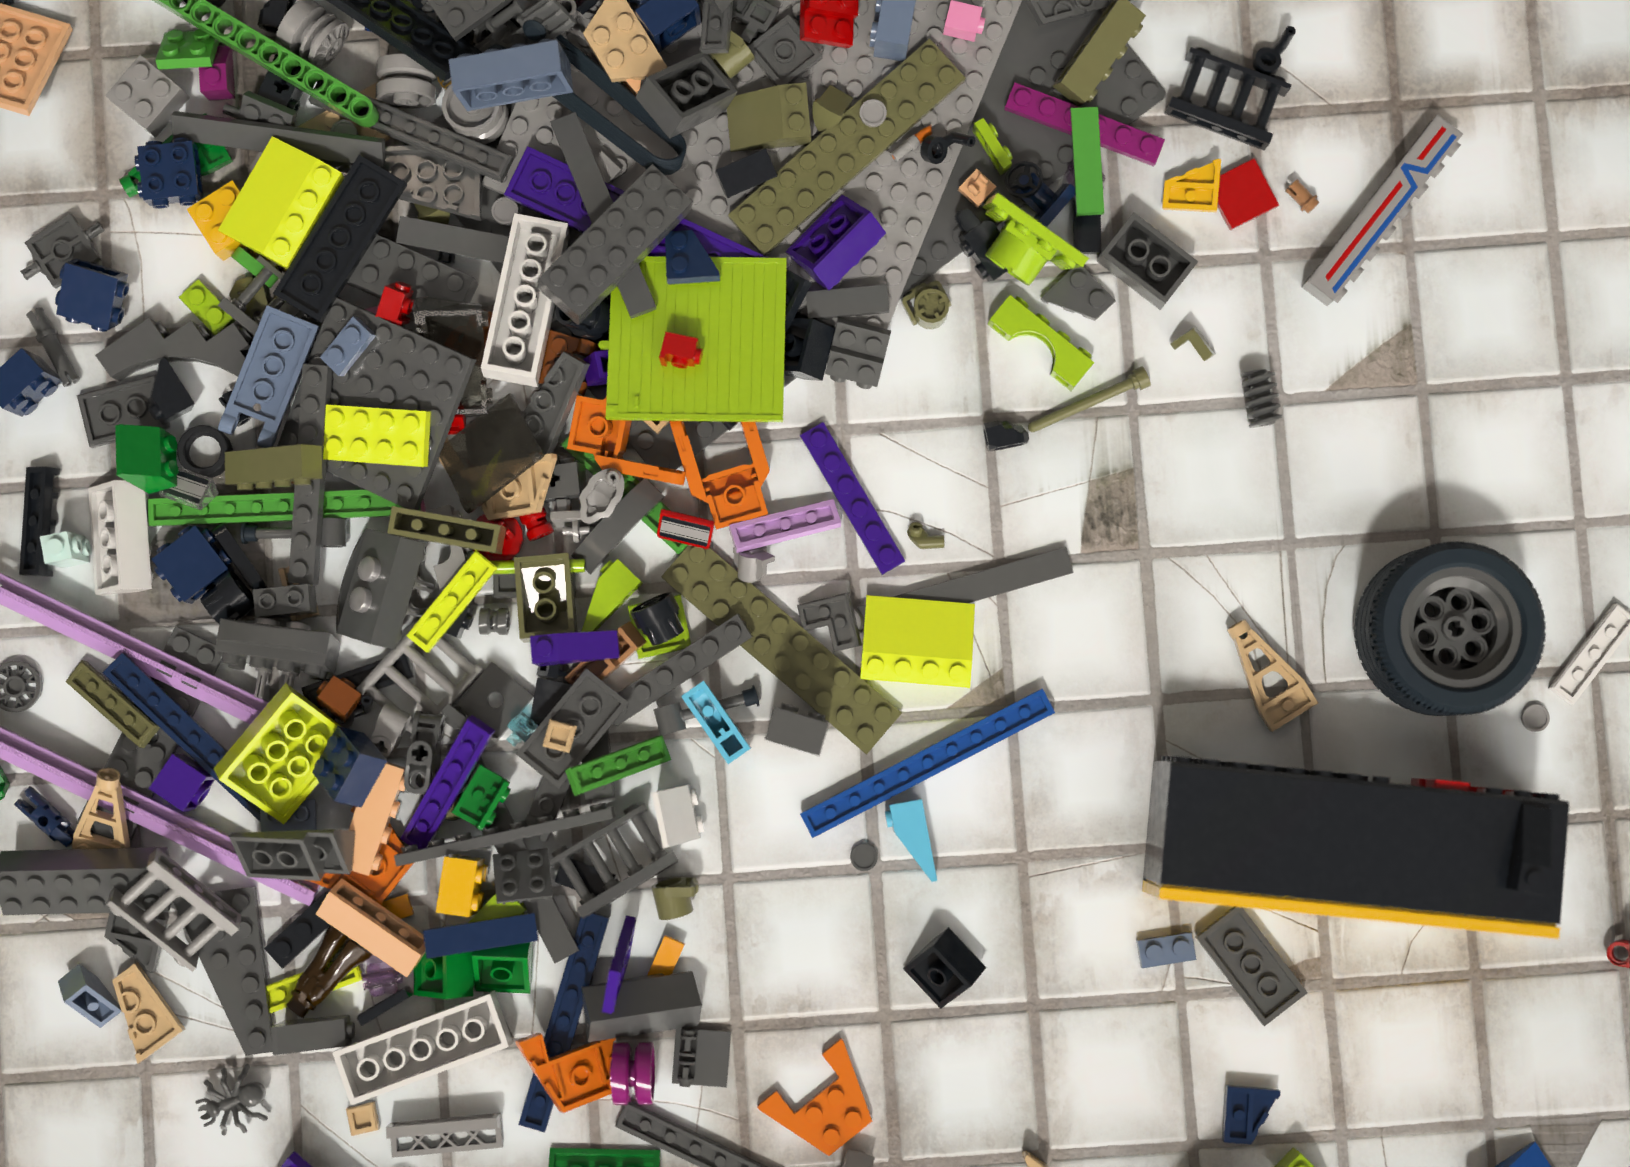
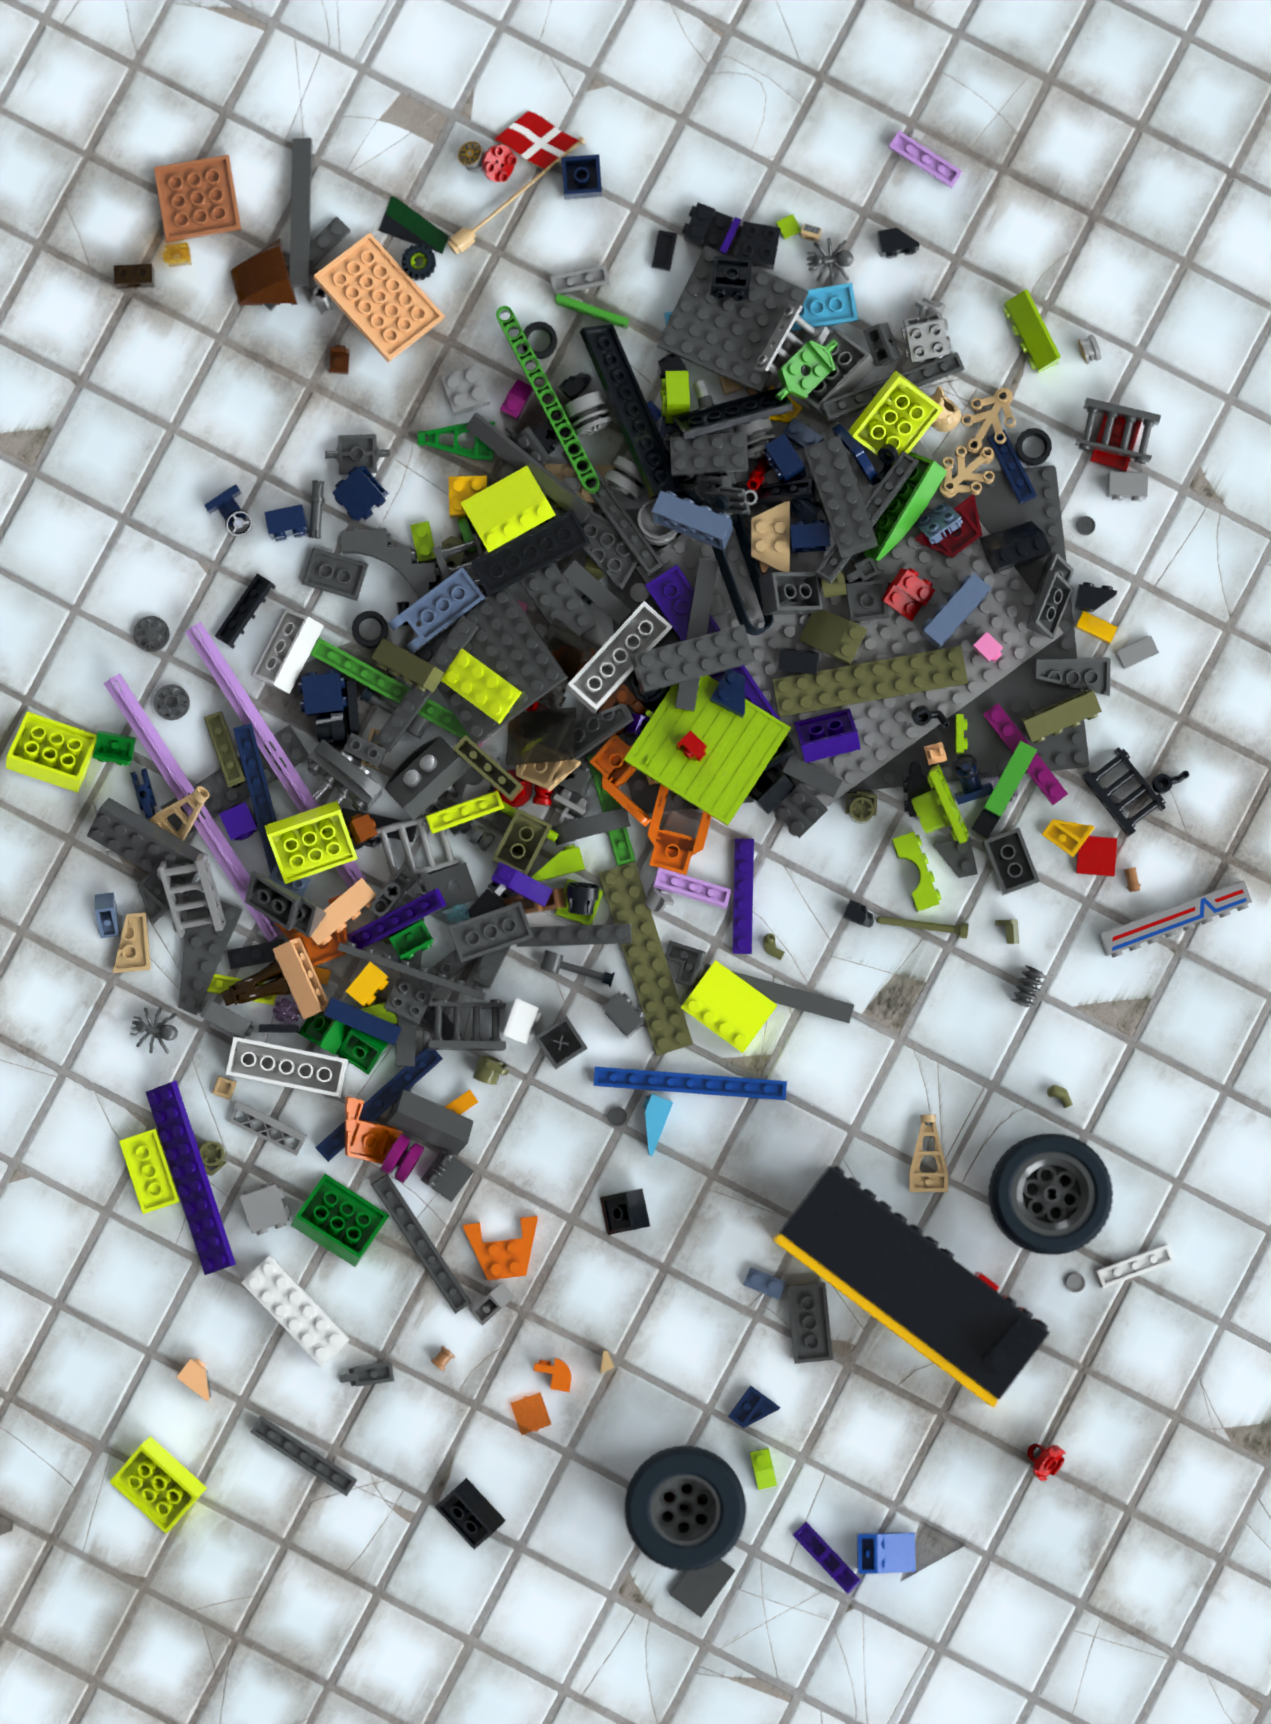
camera: 35 degrees right, 0 degrees up
(65, 549) = (253, 639): light aqua brick -> none
(146, 457) = (335, 614): green slope -> none
(168, 395) = (369, 581): black slope -> none
(169, 173) = (451, 448): dark blue brick -> none
(186, 50) = (506, 377): bright green plate -> none
(191, 489) = (348, 646): slope -> none
(348, 346) = (496, 622): sand blue plate -> none
(349, 766) = (346, 873): brick -> none
(389, 729) = (381, 865): light grey piece -> none
(396, 303) = (540, 613): red brick -> none
(559, 736) = (480, 932): tan tile -> none
(601, 495) = (592, 803): light grey arm -> none
(617, 765) = (504, 970): bright green tile -> none
(619, 964) = (434, 1088): dark purple tile -> none
(685, 529) = (630, 853): slope -> none
(716, 722) = (578, 981): medium azure slope -> none
(741, 810) = (561, 1042): none -> dark grey brick
(830, 108) = (875, 651): olive tile -> none
(873, 113) = (897, 671): light grey piece -> none
(911, 143) = (911, 703): light grey piece -> none
(1377, 501) = (1061, 1093): none -> olive arm

